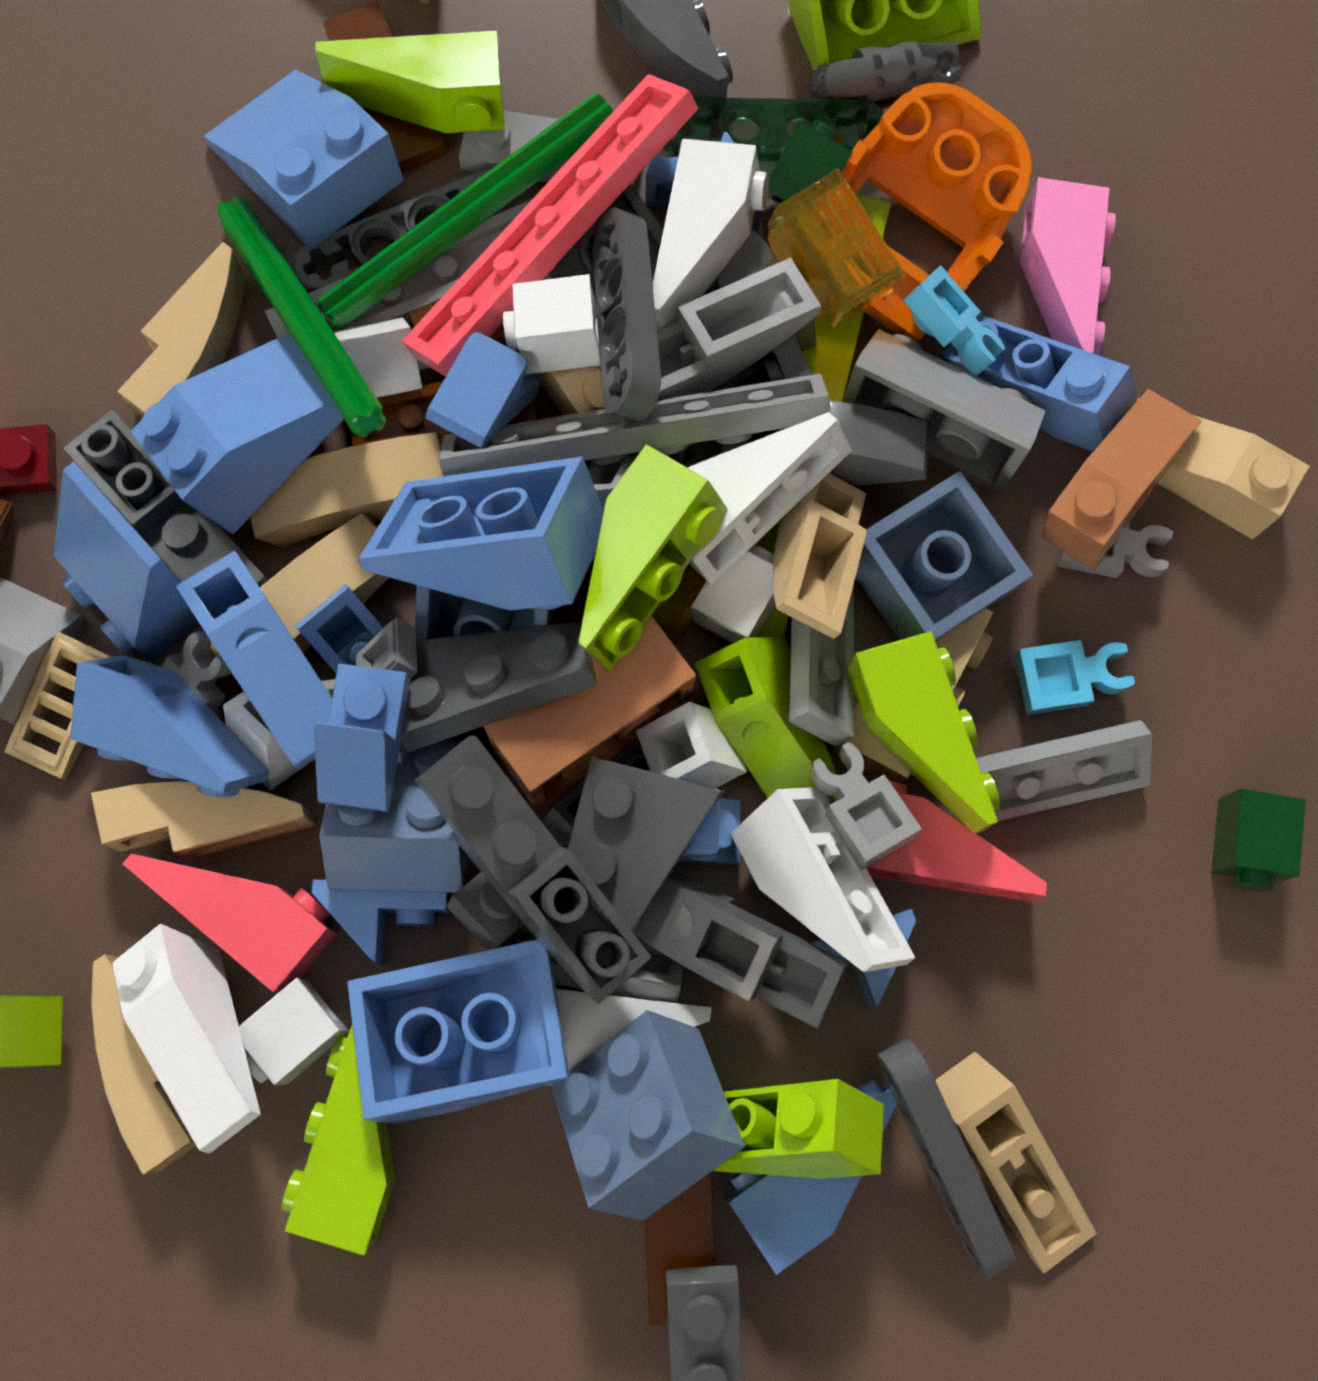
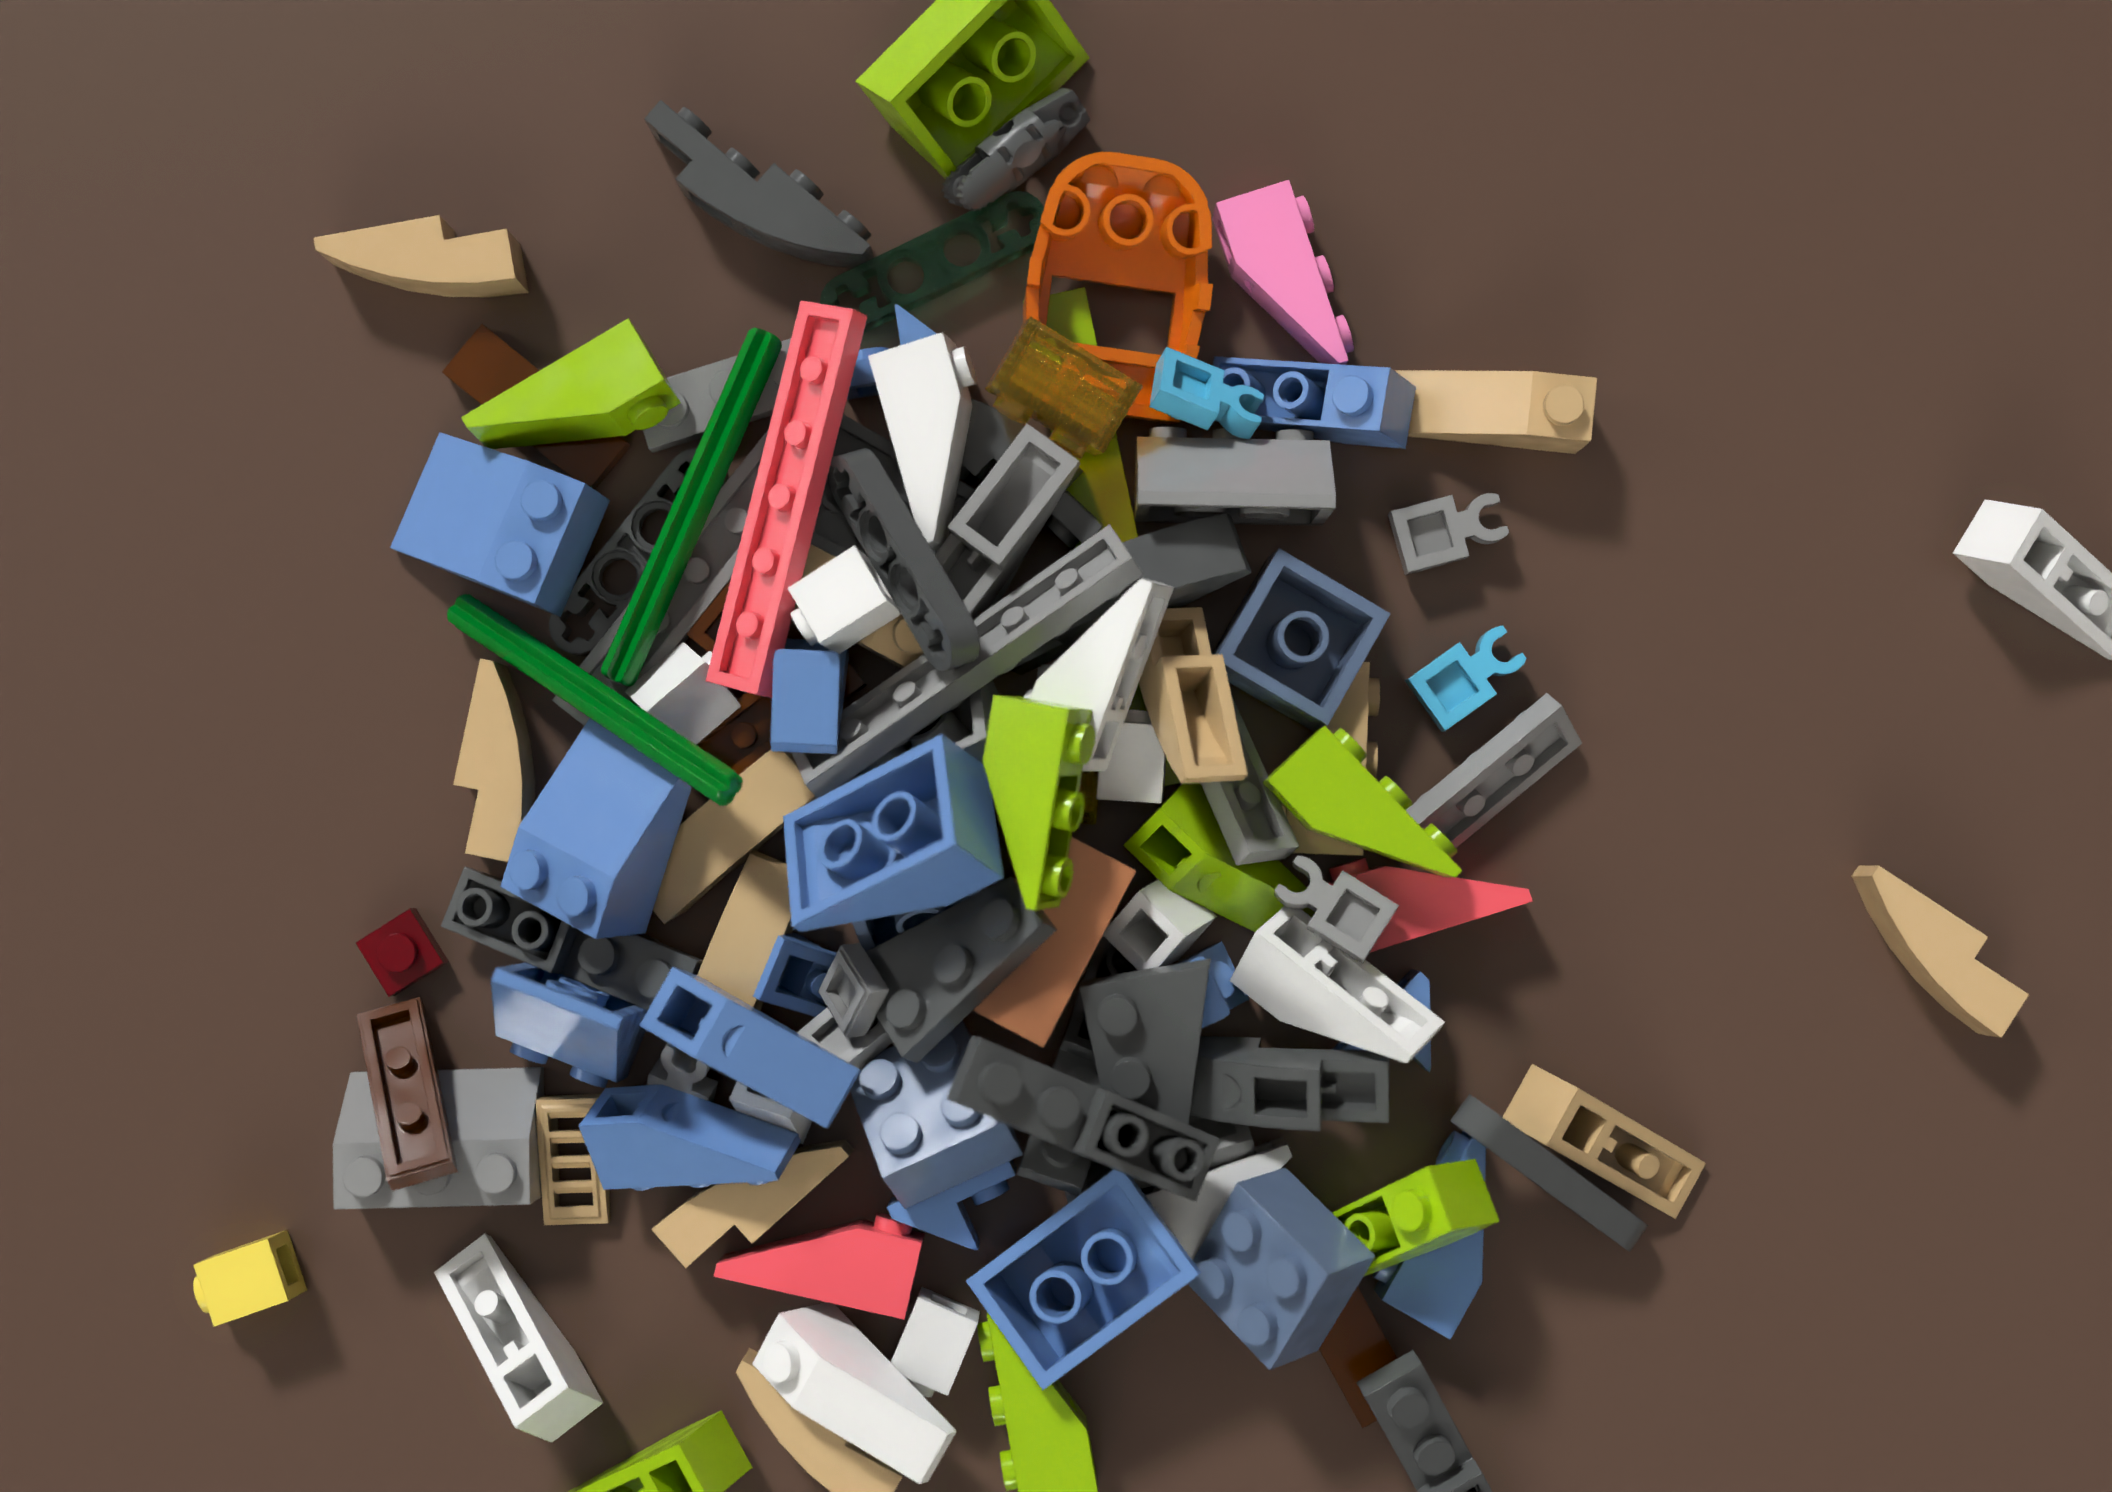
camera: 20 degrees left, 10 degrees up
(362, 738) = (875, 1076): medium blue slope -> none
(807, 159) = (990, 300): dark green brick -> none
(1118, 478) = (1428, 470): nougat slope -> none
(1258, 838) = (1699, 749): dark green brick -> none

